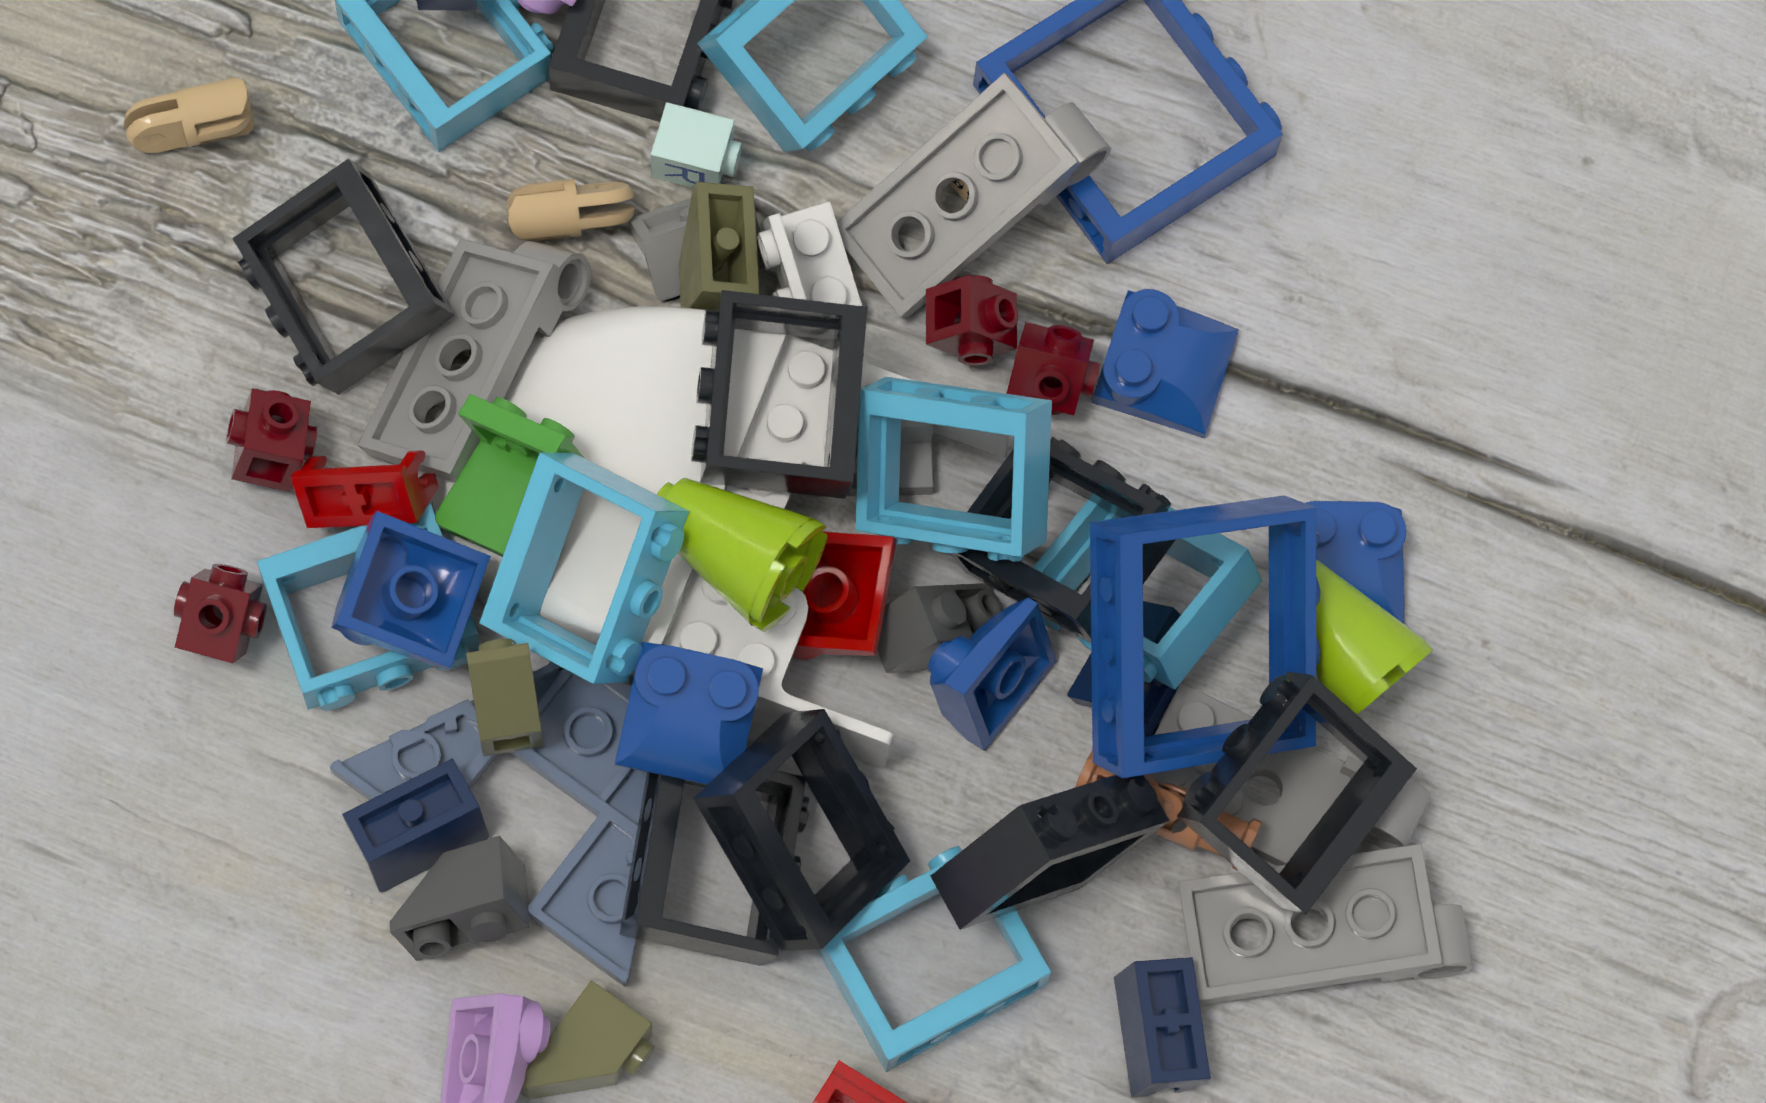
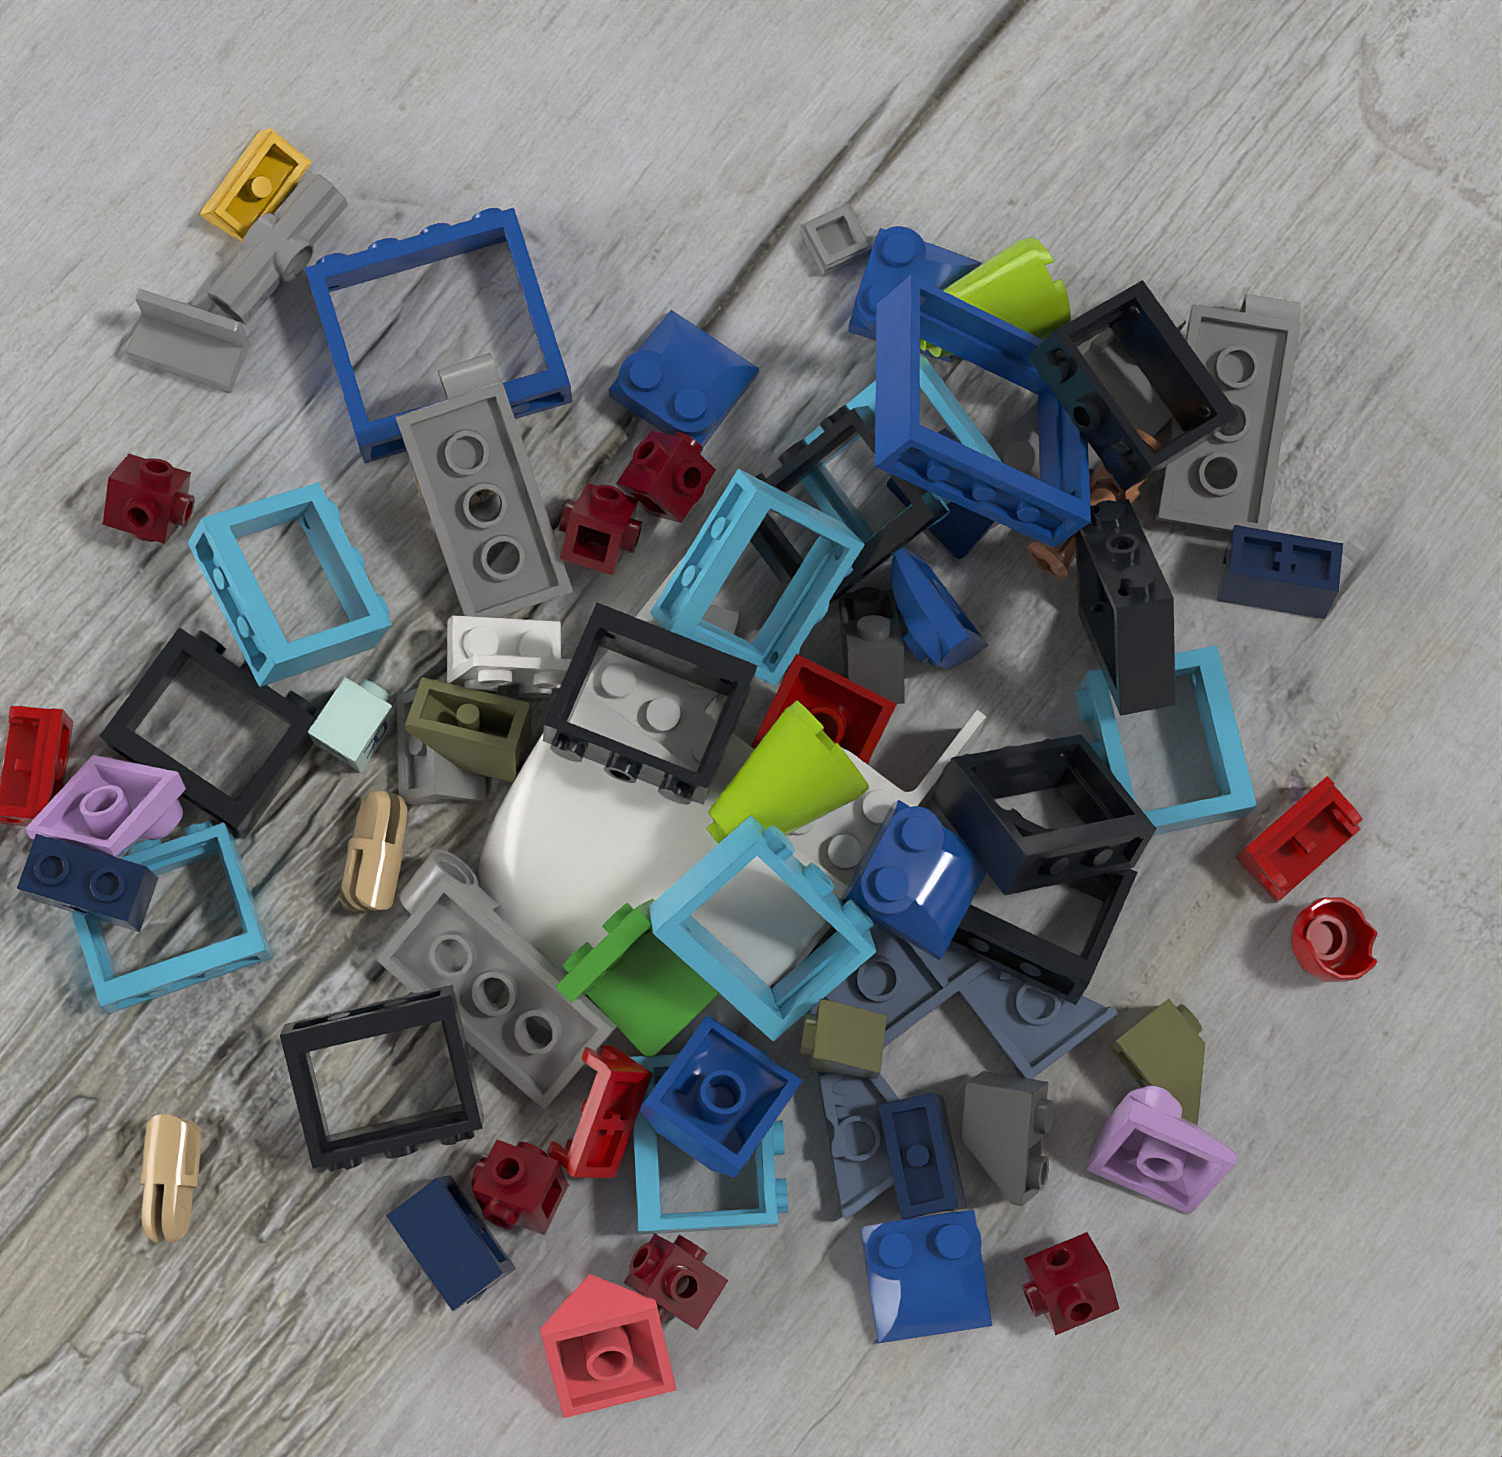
camera: 70 degrees left, 5 degrees up
(132, 566) = (606, 1348): none -> coral slope
(197, 393) = (450, 1242): none -> dark blue hinge
(297, 868) = (926, 1276): none -> blue slope
(324, 1006) = (1069, 1284): none -> dark red brick
(1375, 470) = (835, 239): none -> light grey tile

